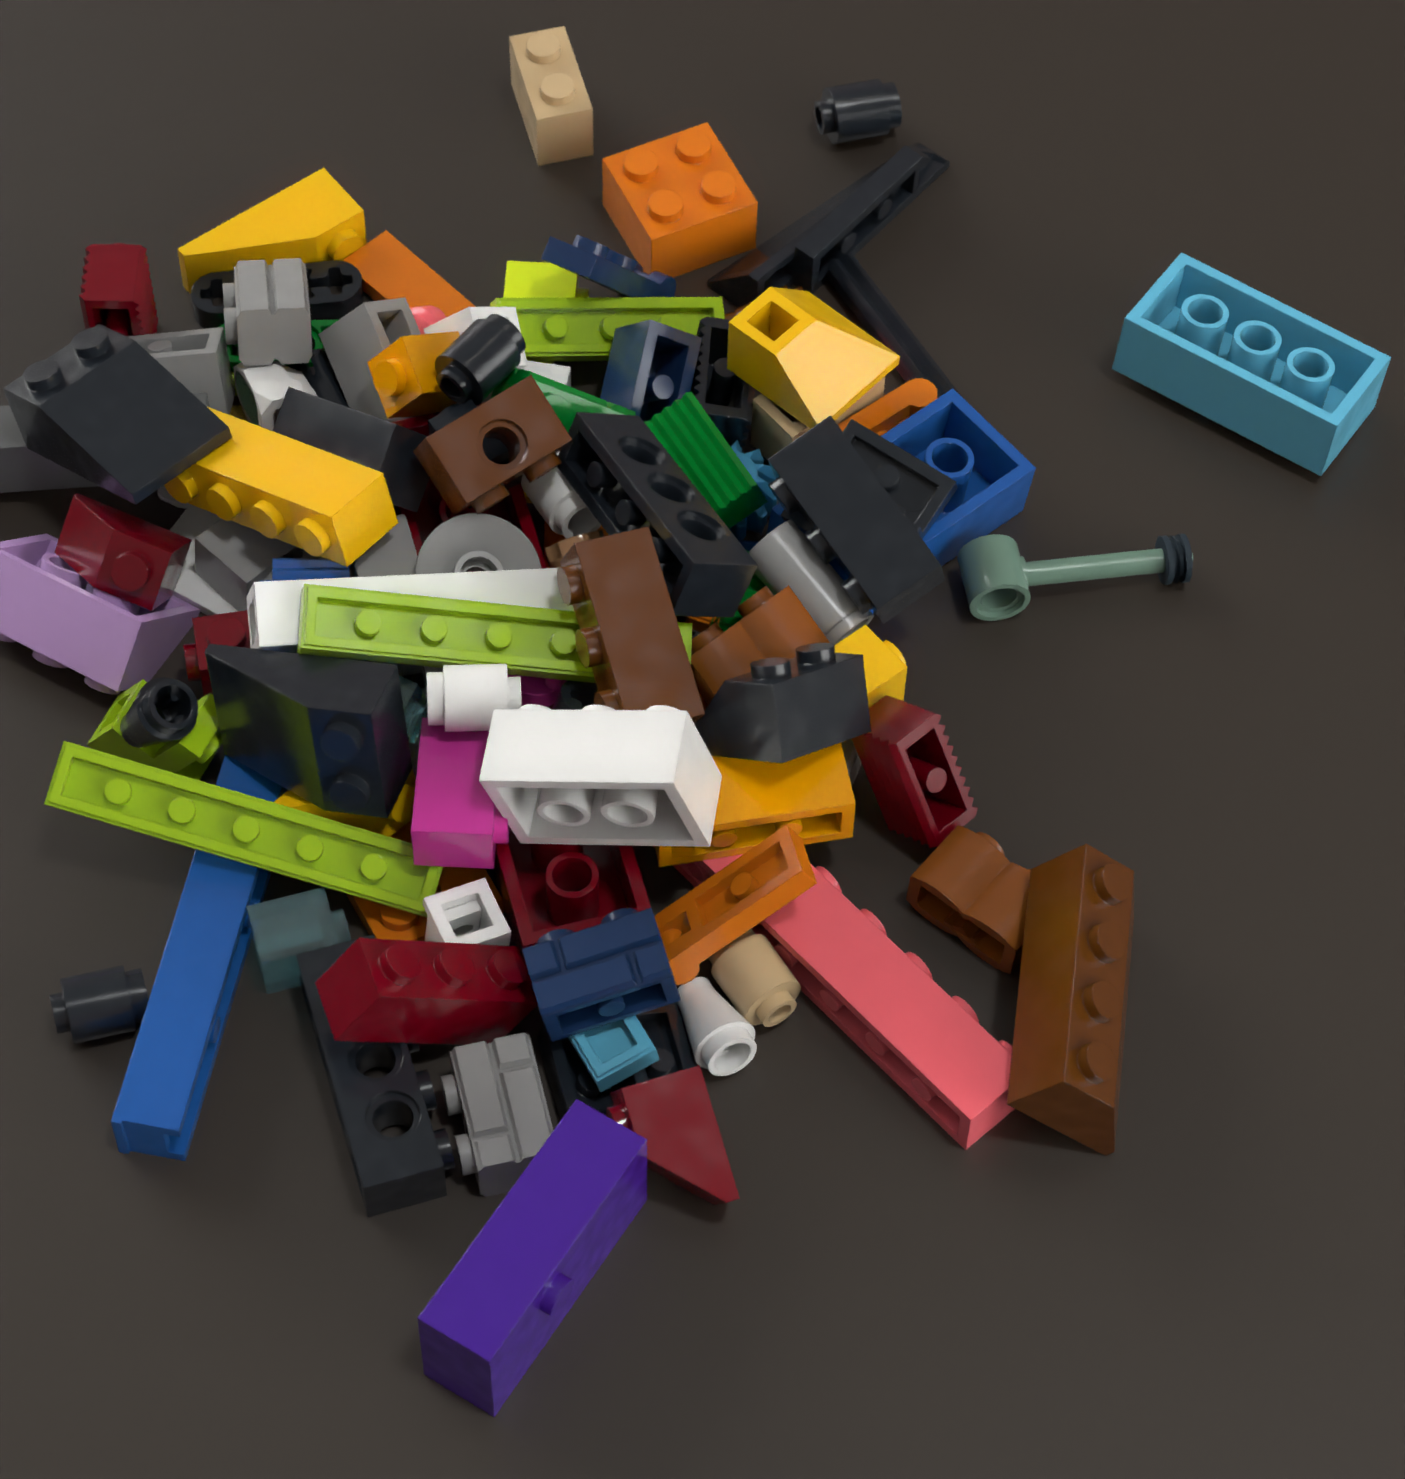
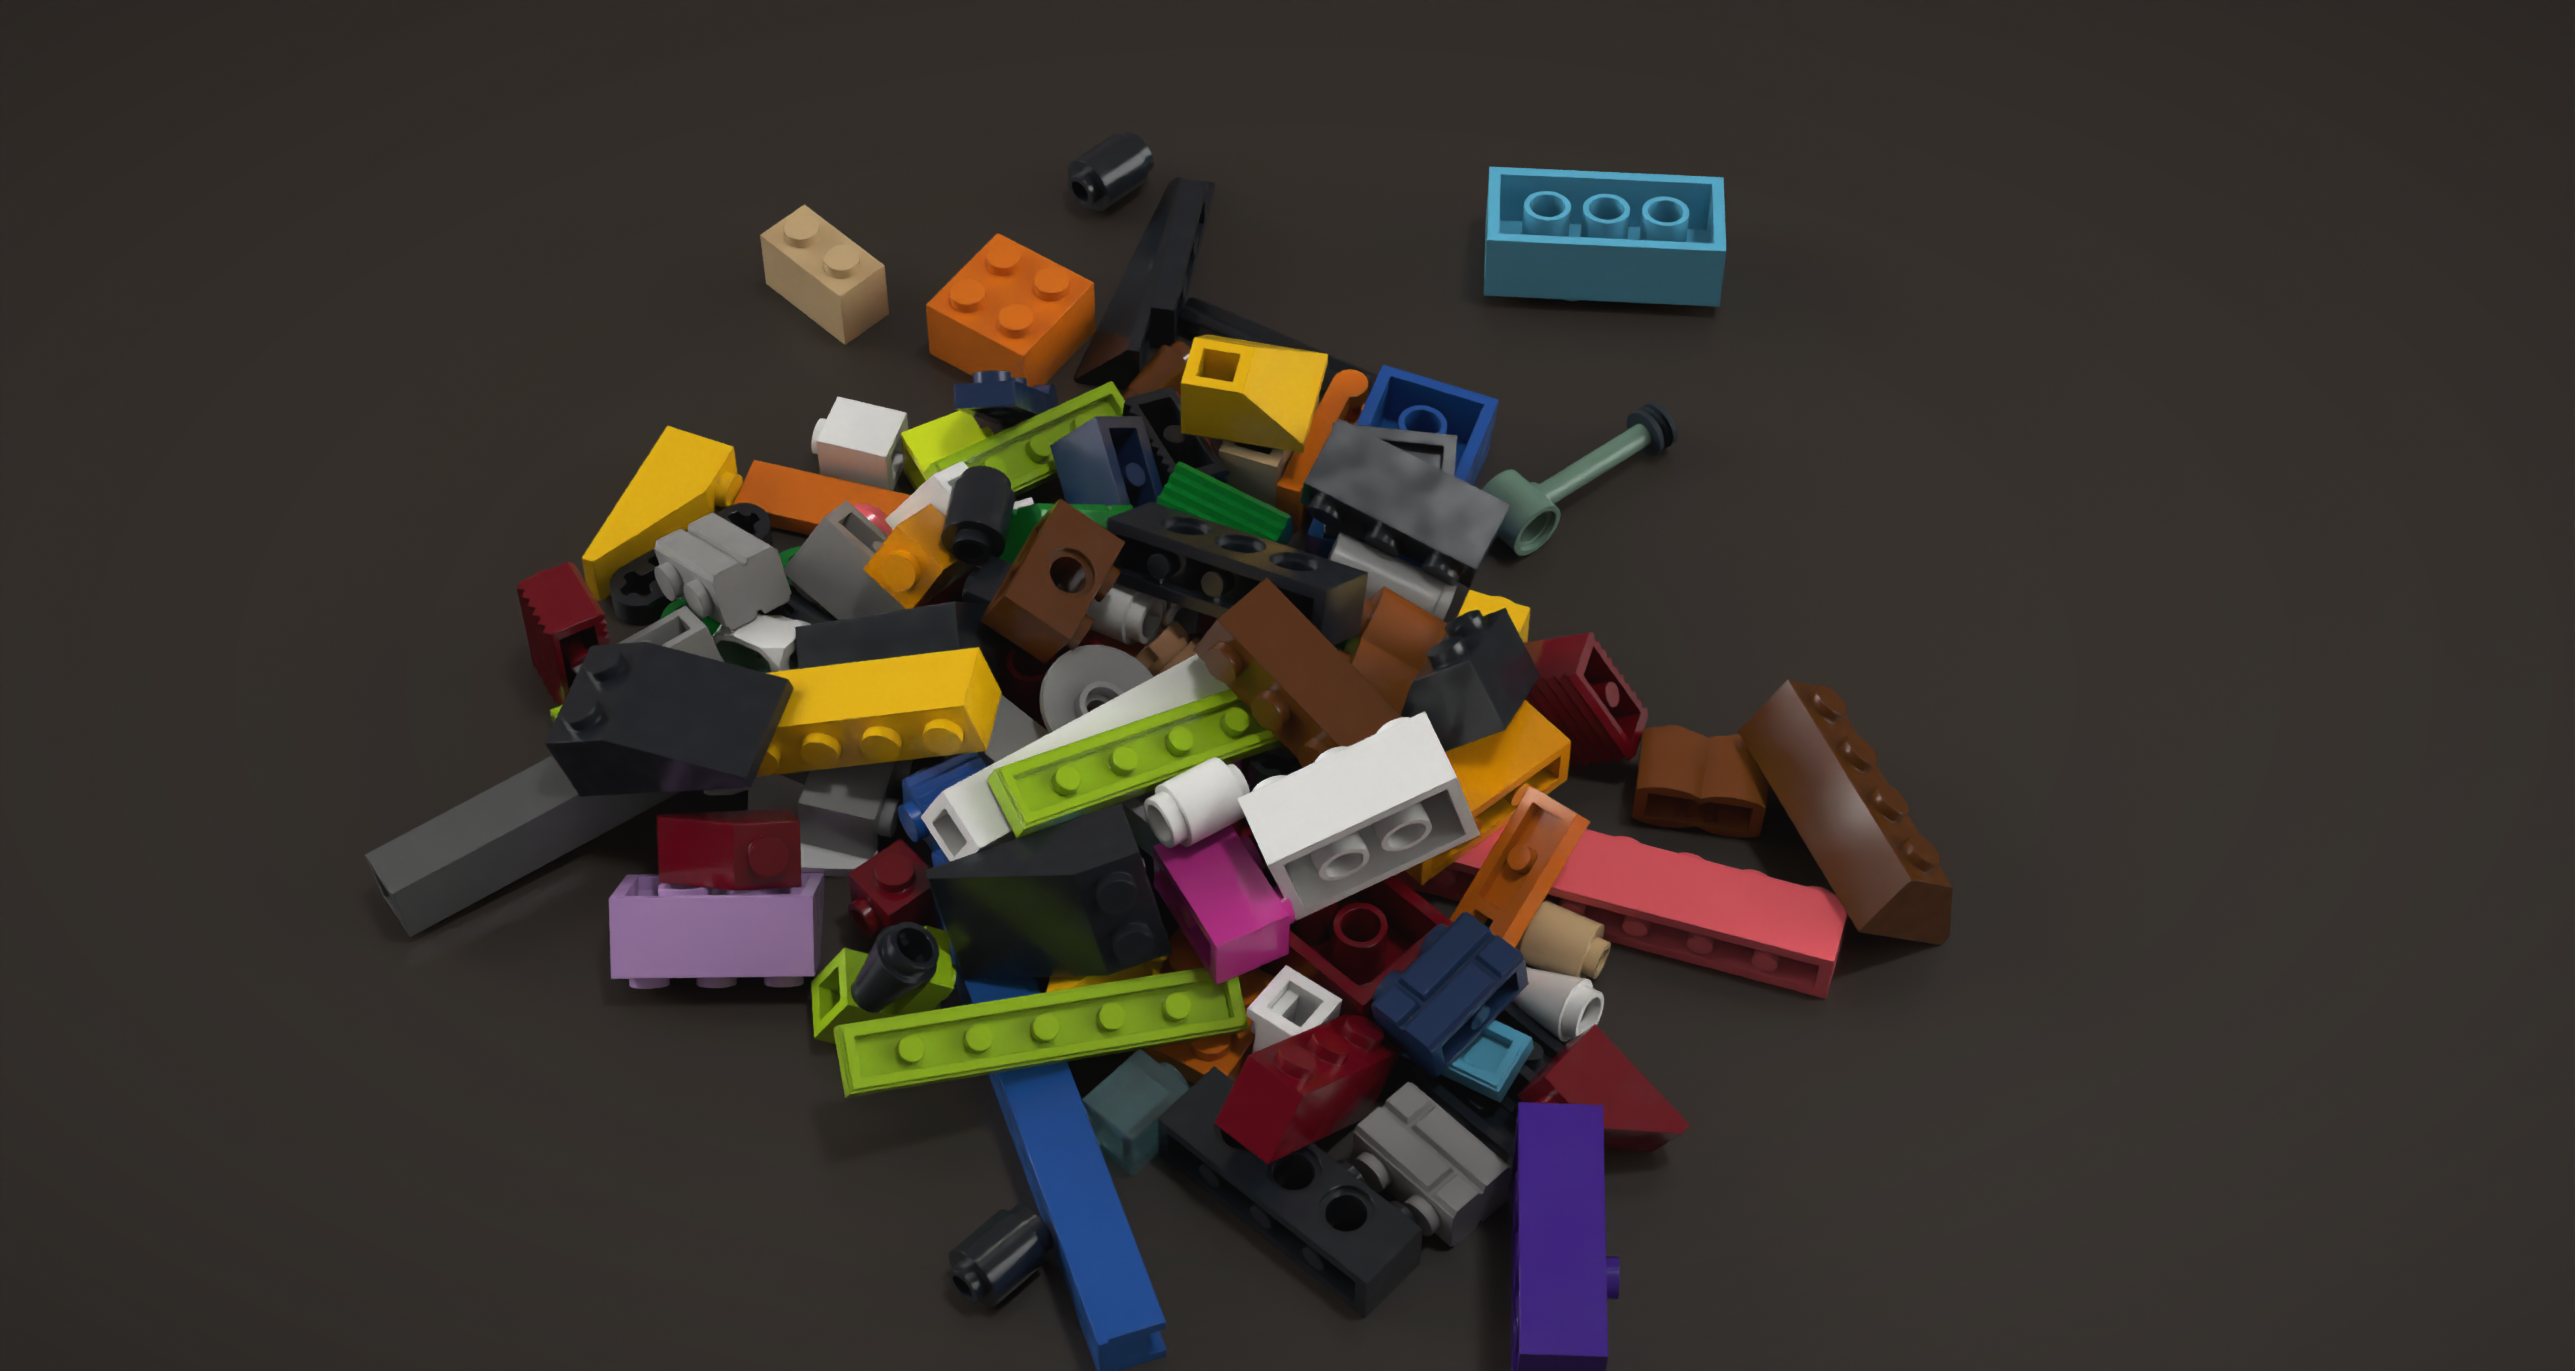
camera: 30 degrees left, 5 degrees down
(475, 254) = (860, 443): none -> white brick

